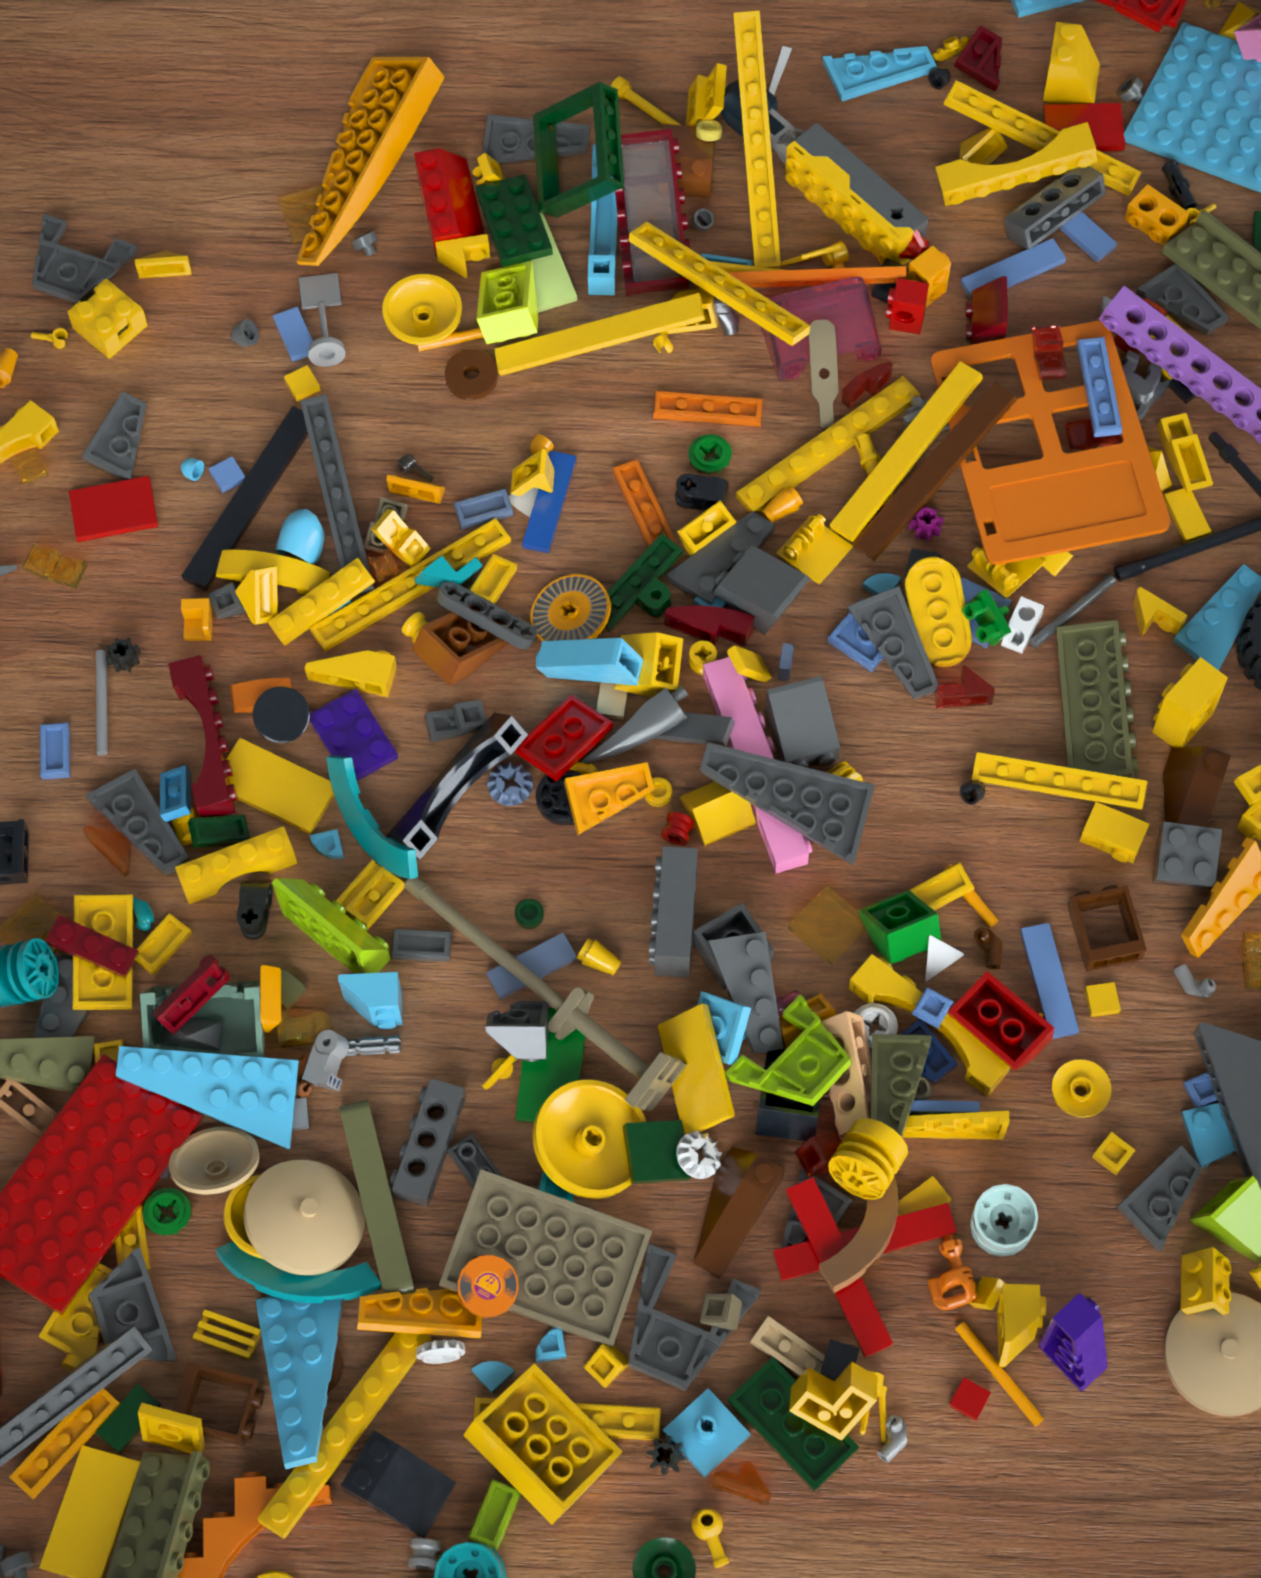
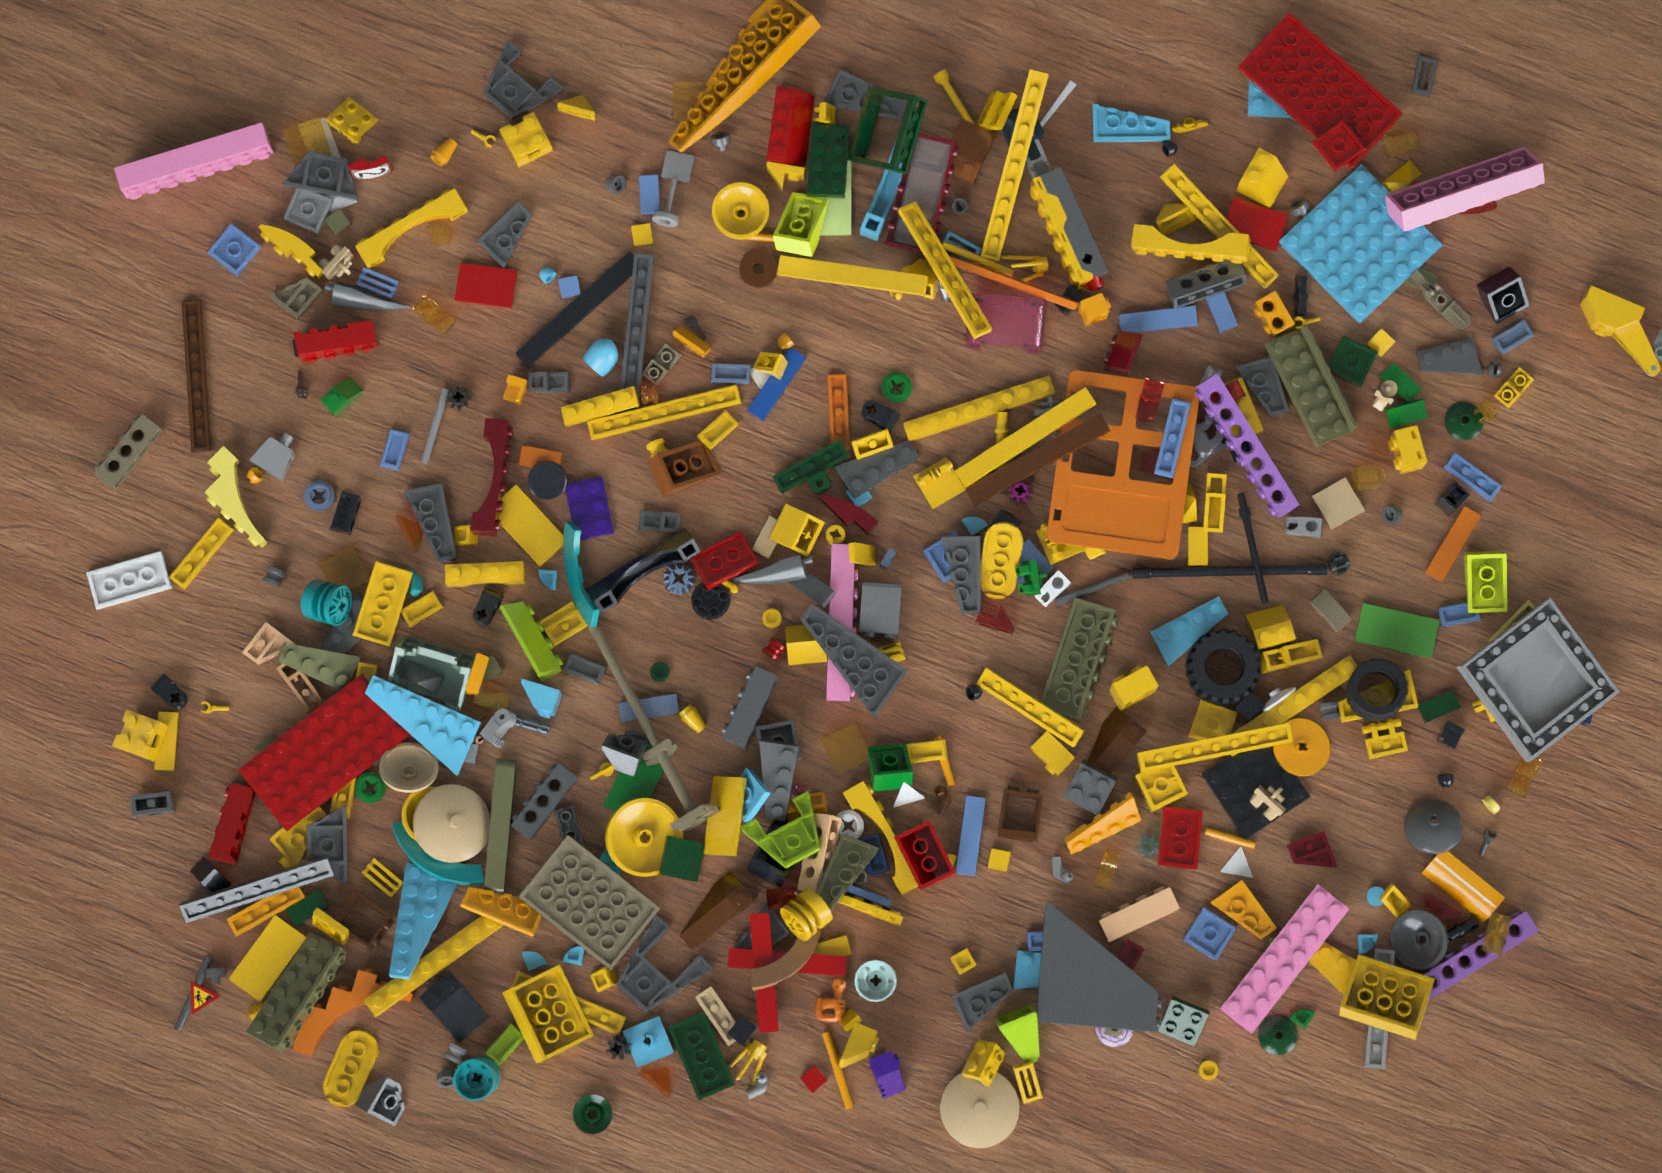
camera: 20 degrees right, 15 degrees up
(92, 946) = (376, 600): dark red plate -> none
(175, 793) = (462, 510): dark azure plate -> none
(192, 994) = (428, 657): dark red plate -> none
(218, 830) = (481, 546): dark green tile -> none
(259, 594) = (561, 389): yellow slope -> none
(290, 572) = (575, 371): yellow slope -> none
(362, 670) = (611, 466): yellow slope -> none
(400, 539) = (667, 379): yellow slope -> none
(440, 1351) = (505, 936): white gear -> none
(441, 572) = (684, 416): teal slope -> none
(452, 594) = (707, 453): dark grey beam -> none
(487, 1286) = (547, 909): orange tile -> none
(562, 595) = (753, 484): piece -> none
(590, 660) = (757, 517): medium azure slope -> none
(605, 793) = (732, 611): light orange wing -> none
(689, 1159) = (699, 870): white gear -> none
(708, 130) = (988, 138): light yellow tile -> none
(708, 408) = (908, 351): orange tile -> none
(710, 1534) = (628, 1102): yellow bar -> none
(721, 1310) = (683, 972): dark tan slope -> none
(760, 586) = (889, 502): dark grey slope -> none
(782, 504) = (930, 443): light orange cone -> none
(823, 356) = (996, 346): dark tan piece -> none
(834, 1404) = (726, 1055): yellow brick -> none
(870, 380) = (1026, 371): clear red slope -> none
(907, 306) = (1070, 327): red brick -> none
(932, 1007) = (886, 830): medium blue tile -> none
(982, 58) = (1205, 143): dark red wing -> none
(1082, 1075) = (963, 903): yellow dish -> none
(1152, 608) = (1141, 607): yellow slope -> none

